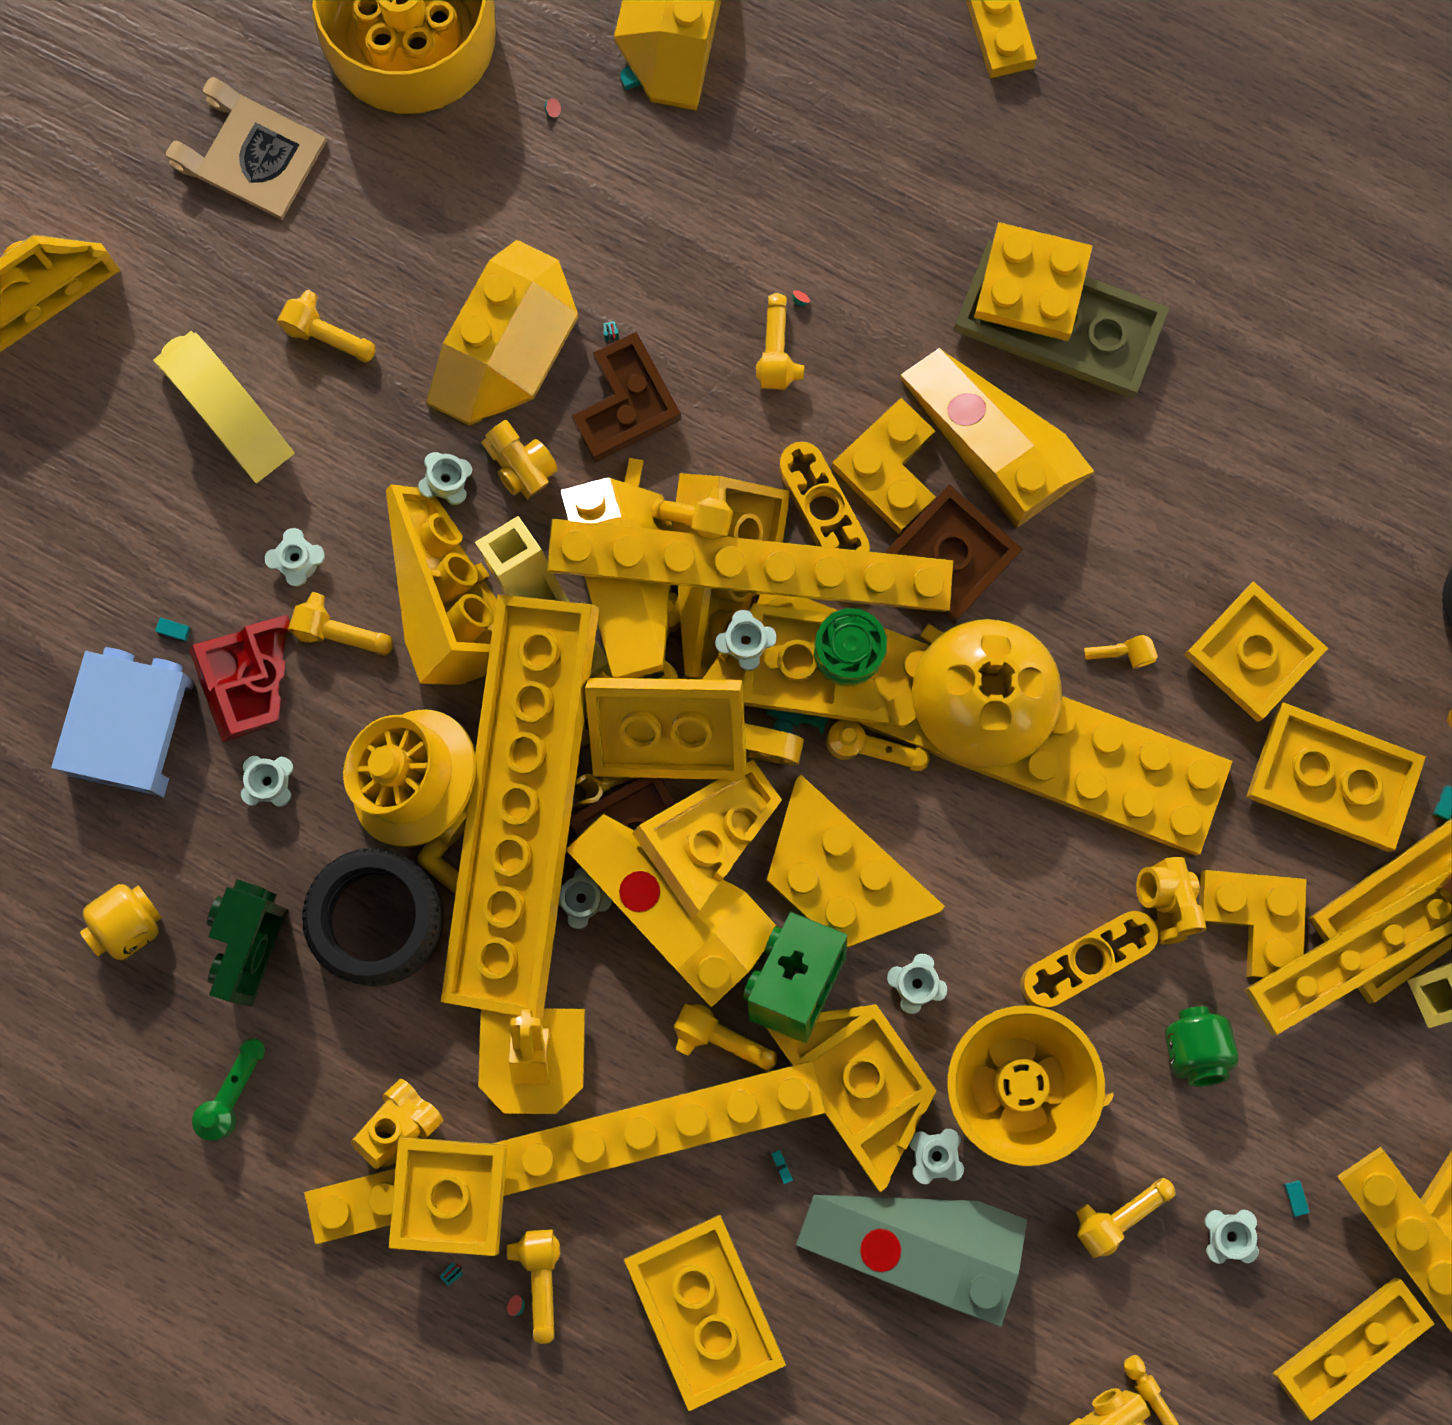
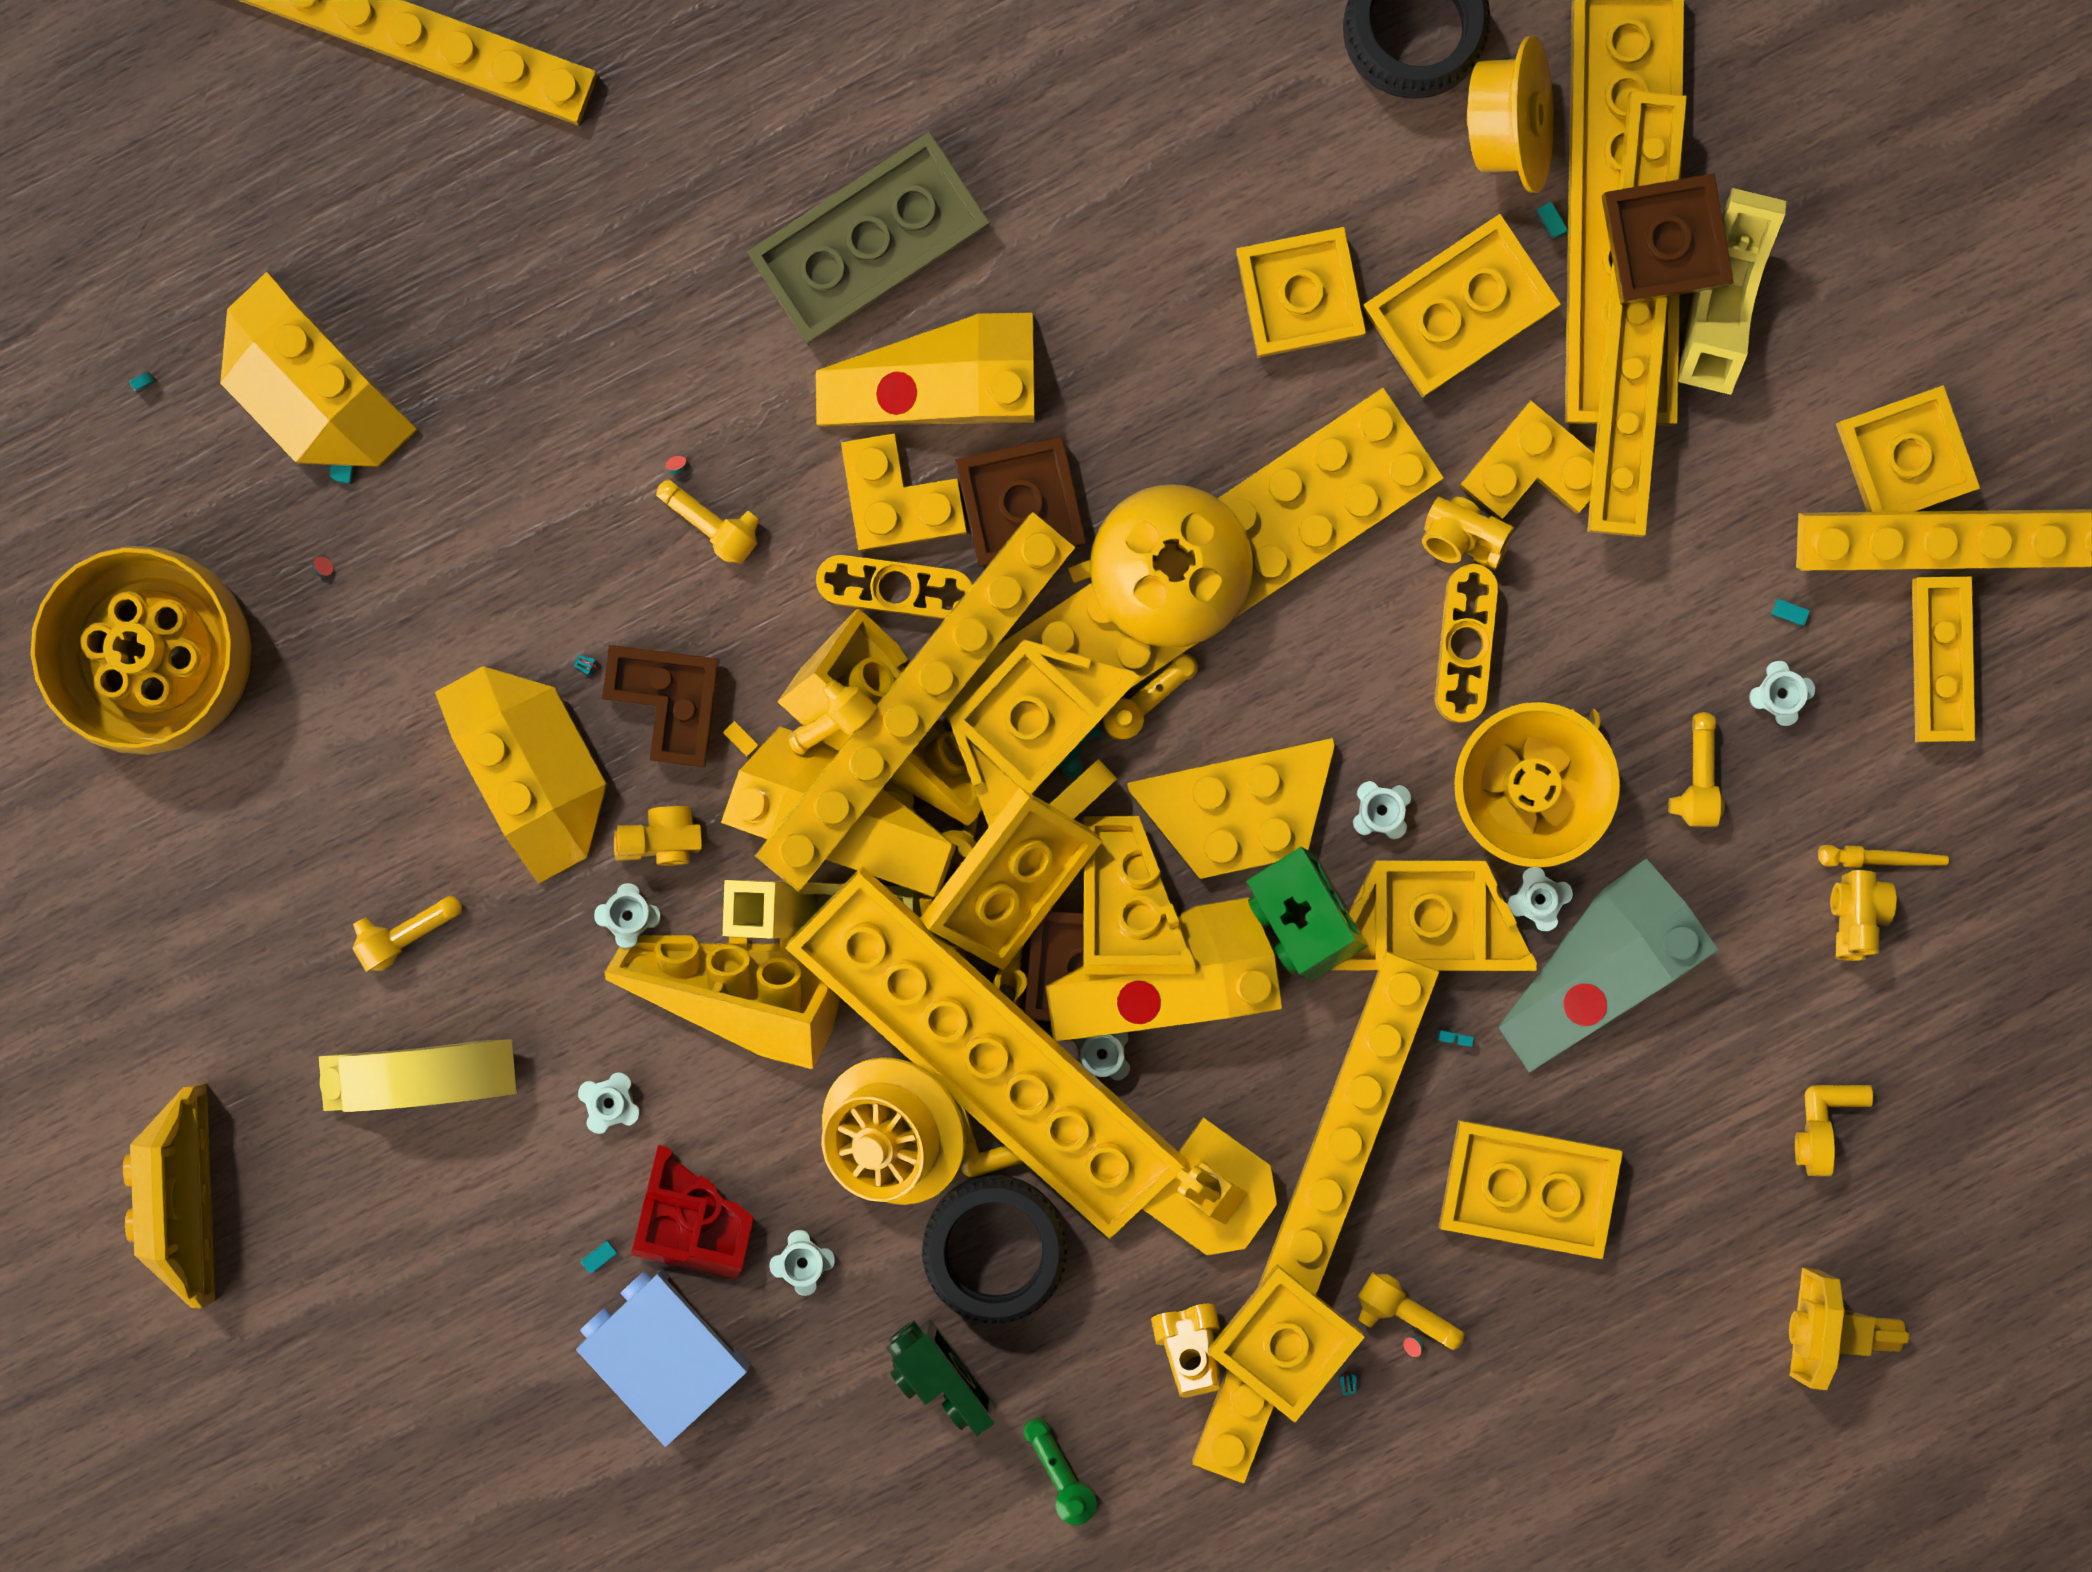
camera: 50 degrees left, 10 degrees up
(120, 922) = (844, 1473): yellow head -> none
(255, 154) = (177, 879): tan flag -> none
(313, 623) = (683, 1127): yellow piece -> none
(698, 1027) = (1287, 1027): yellow piece -> none
(745, 625) = (972, 768): light aqua plate -> none
(850, 647) = (1052, 666): green wheel -> none
(1033, 281) = (818, 242): yellow plate -> none
(1139, 650) = (1225, 396): yellow hand -> none
(1201, 1047) = (1609, 603): green head -> none

